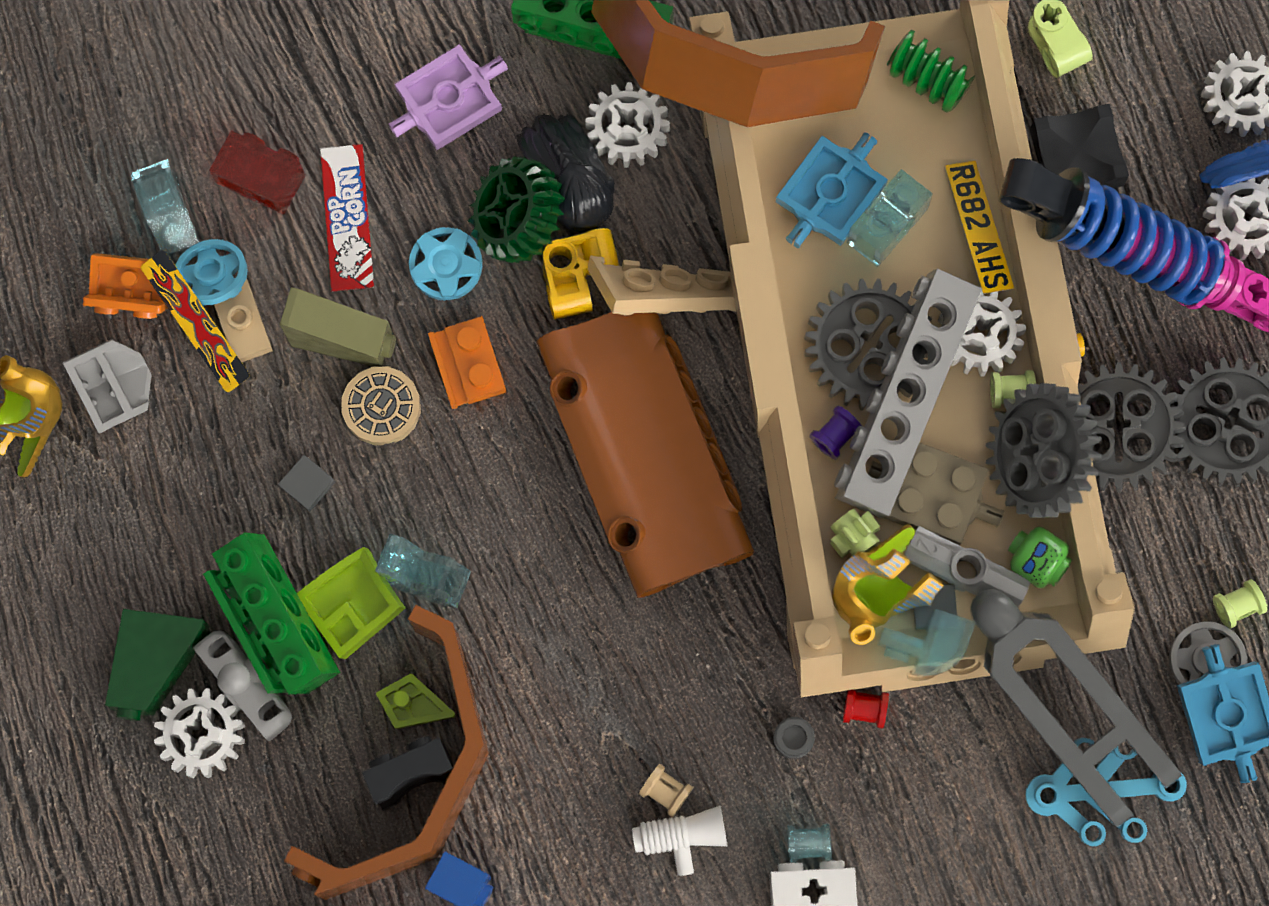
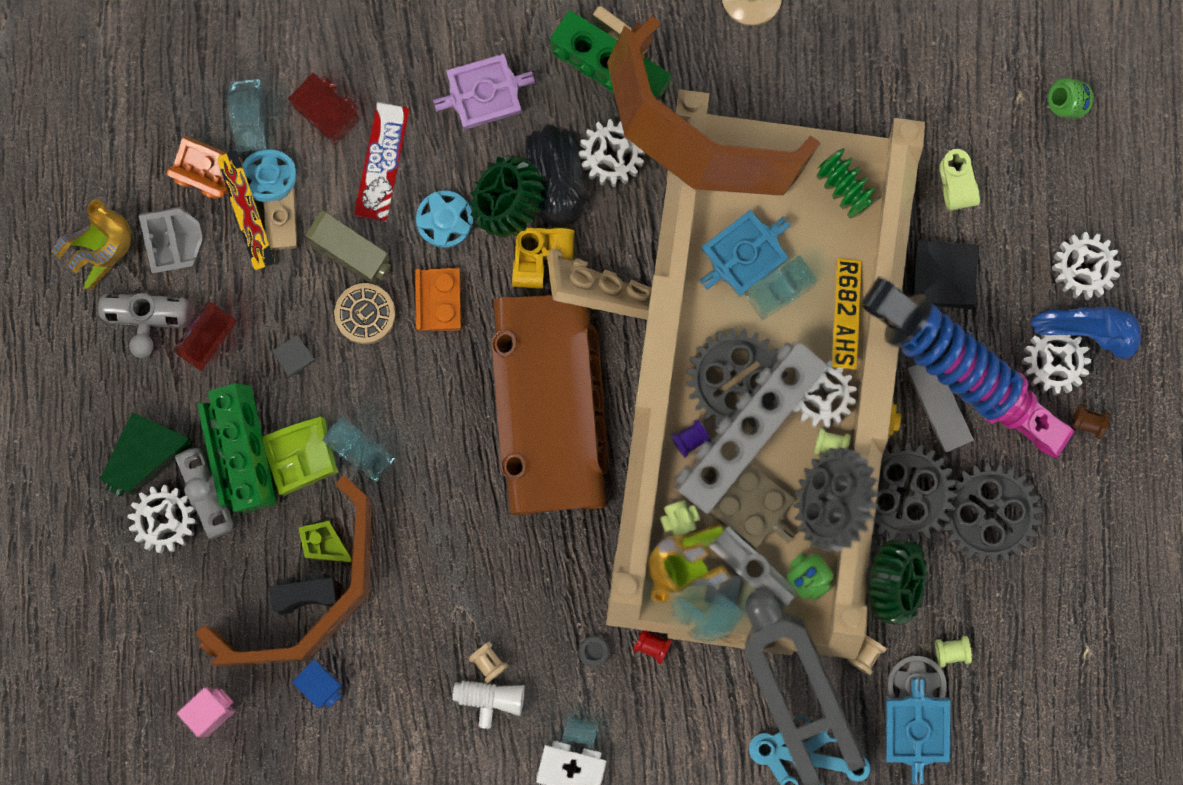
camera: 15 degrees right, 5 degrees up
(81, 487) = (127, 311): none -> light grey piece
(188, 487) = (204, 335): none -> clear red brick
(1123, 311) = (940, 409): none -> light grey tile
(1137, 642) = (867, 655): none -> tan bush
(1146, 535) = (897, 581): none -> dark green gear

